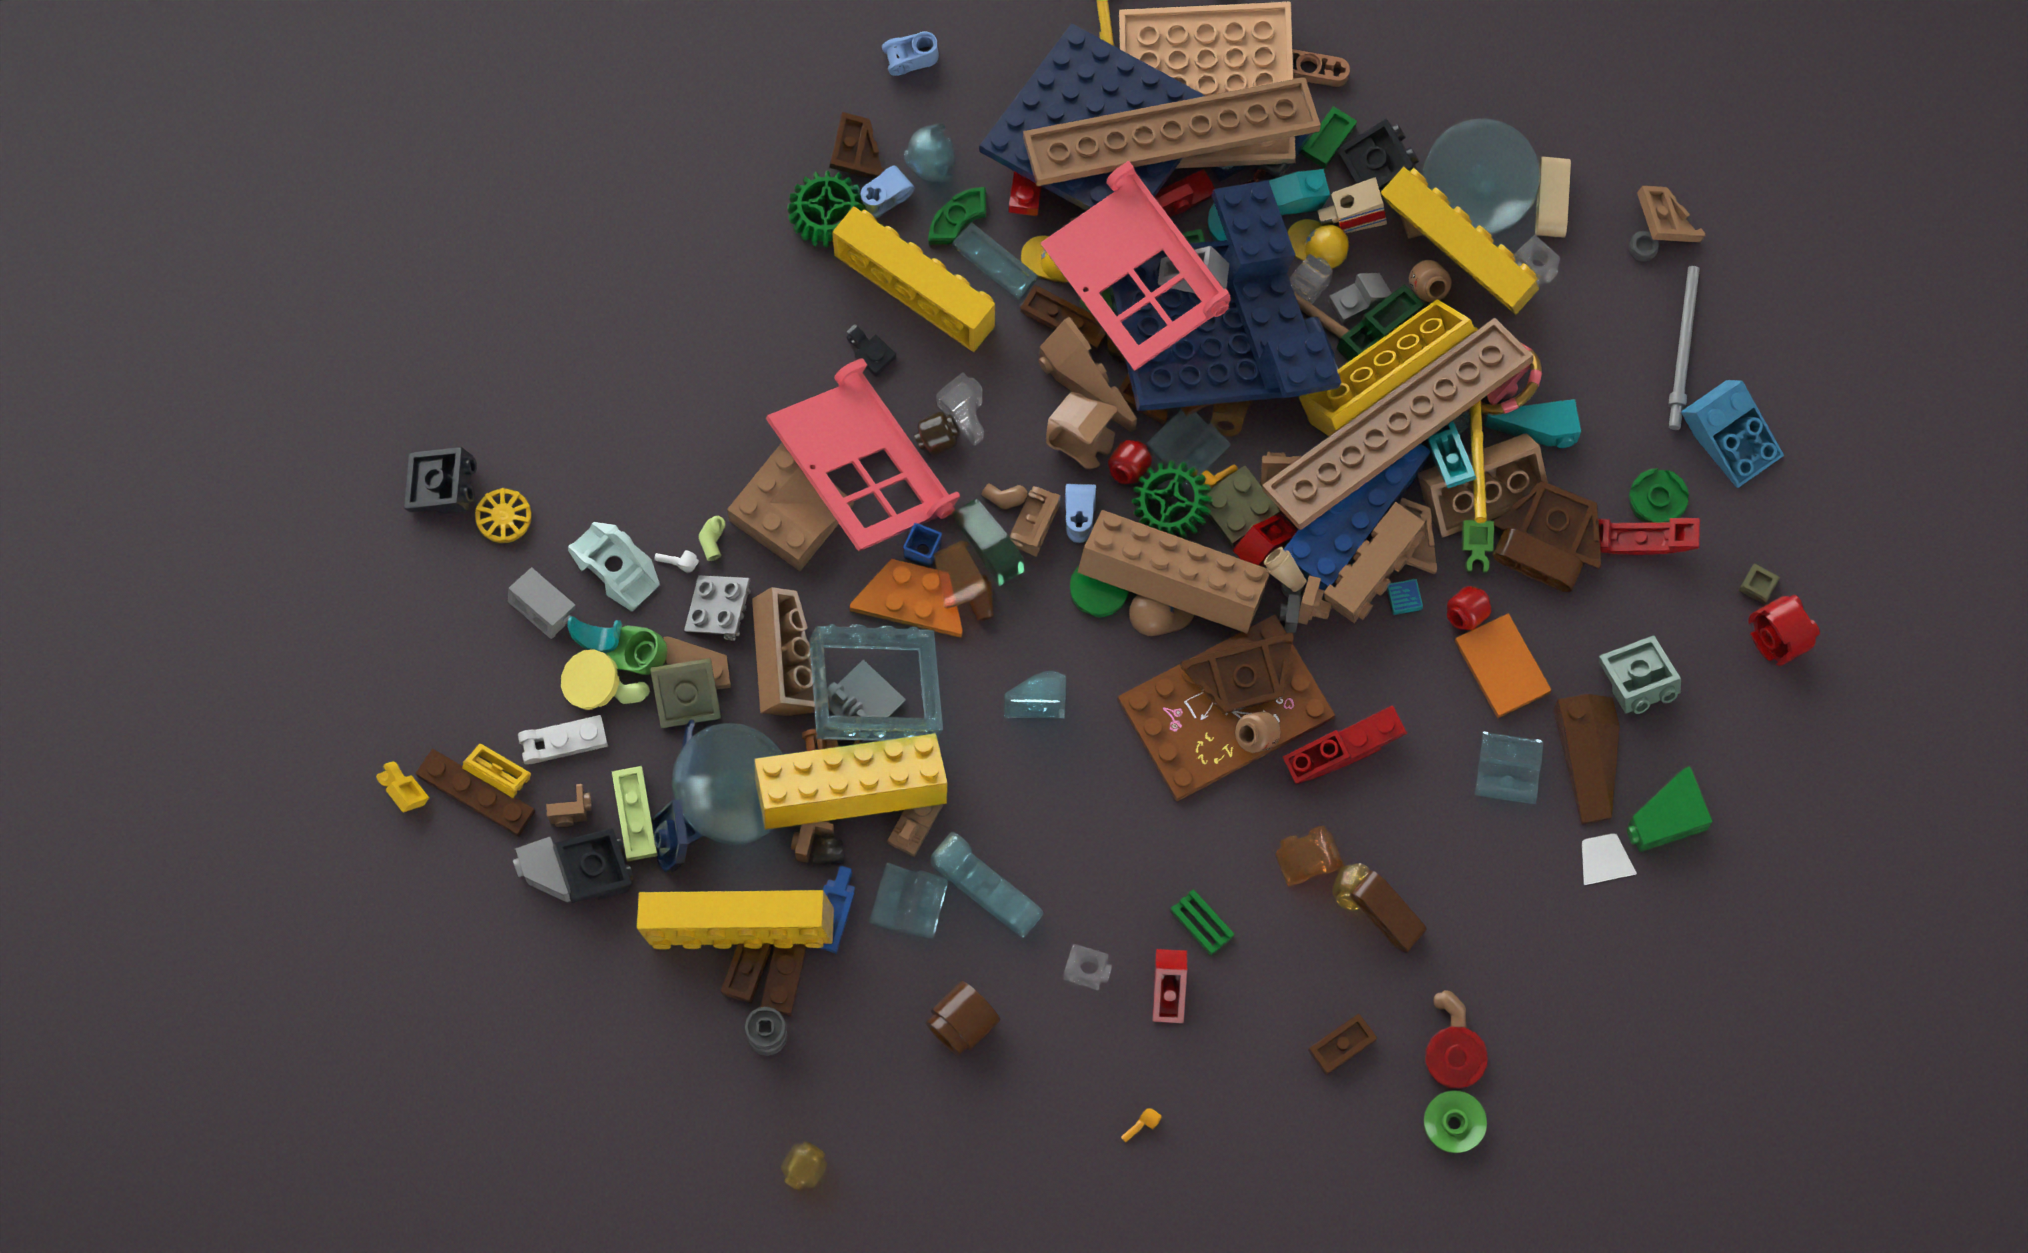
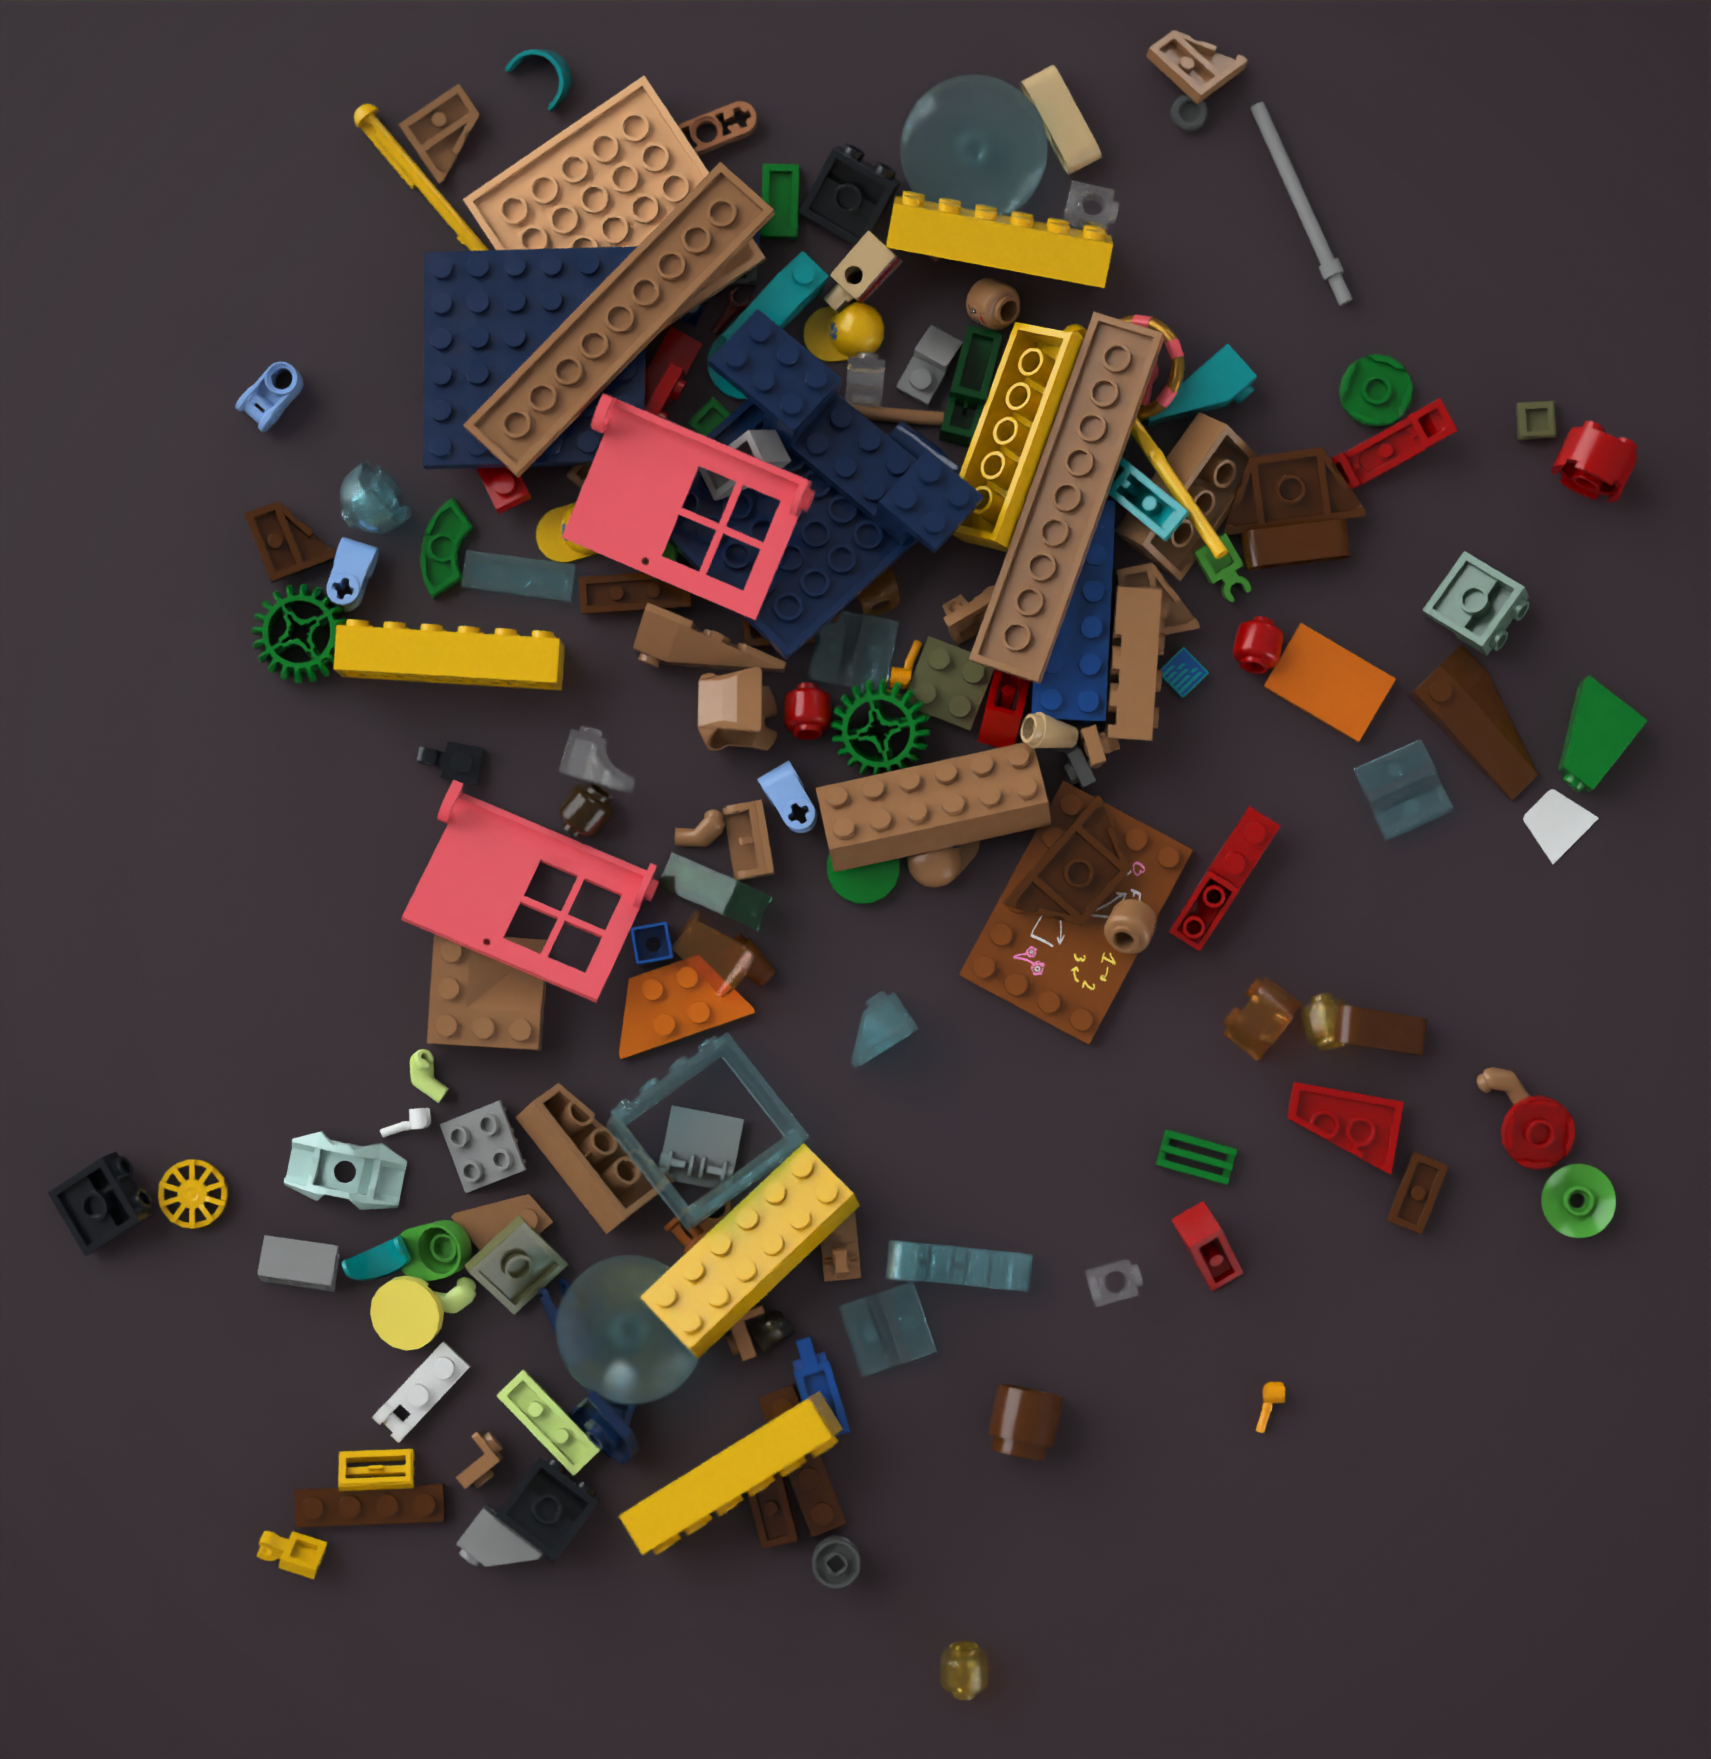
camera: 30 degrees left, 15 degrees up
(1326, 964) = (1349, 1120): none -> red wing
(1733, 431) = (1409, 268): dark azure slope -> none

